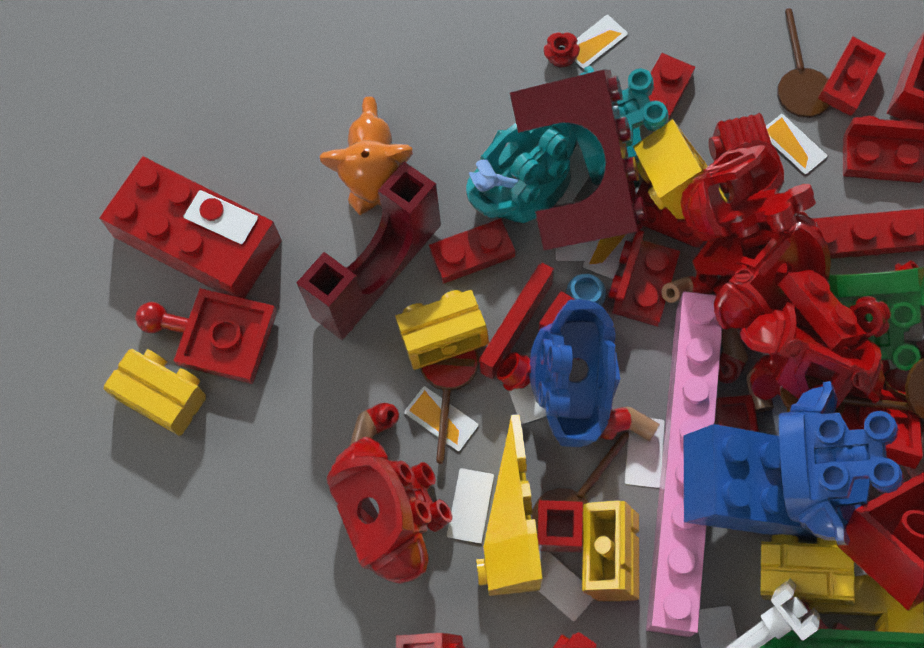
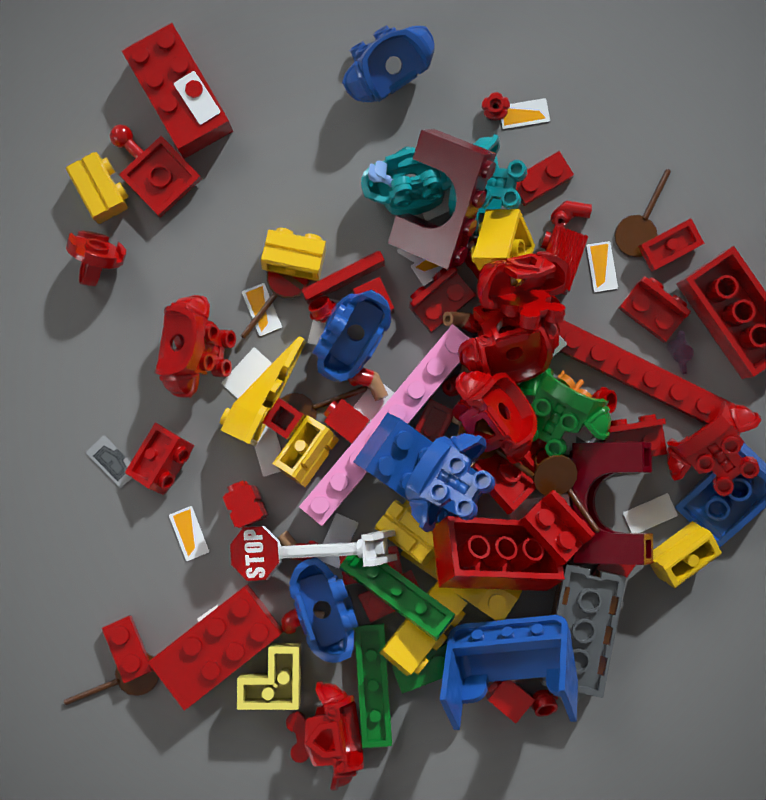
camera: 25 degrees right, 15 degrees up
(198, 473) = (94, 253): none -> red tile
(368, 158) = (312, 123): orange animal -> none
(375, 421) = (218, 287): arm -> none
(401, 84) = (367, 76): none -> blue piece
(409, 218) = (309, 174): dark red arch -> none
(472, 250) = (347, 213): red plate -> none
(587, 287) = (399, 285): dark azure plate -> none
(634, 482) = (345, 420): none -> red brick
(716, 105) = (569, 210): none -> red arm
(823, 311) = (518, 389): red plate -> none
(880, 314) = (537, 411): red plate -> none

